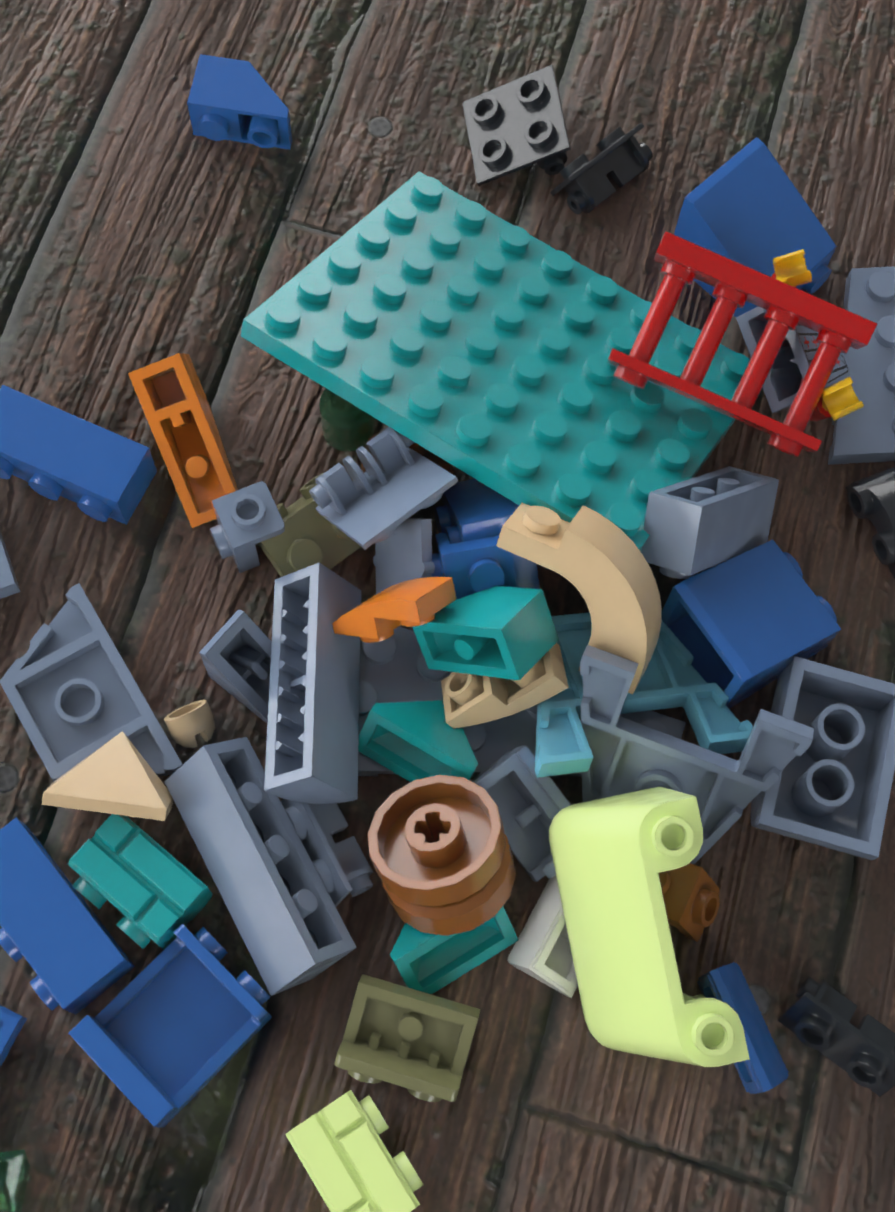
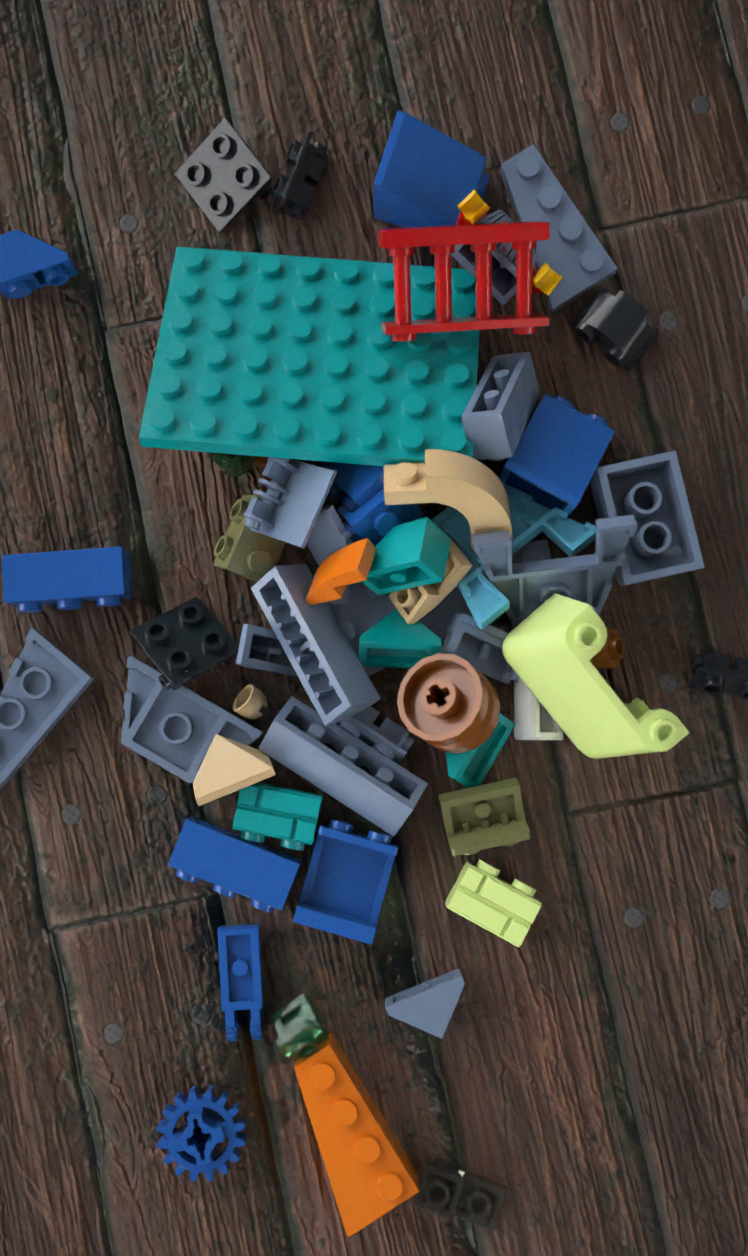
camera: 20 degrees left, 15 degrees up
(154, 604) = (185, 643): none -> black hinge
(185, 434) = (138, 522): orange slope -> none
(243, 521) = (211, 561): sand blue bracket -> none
(765, 1065) = (660, 694): blue slope -> none

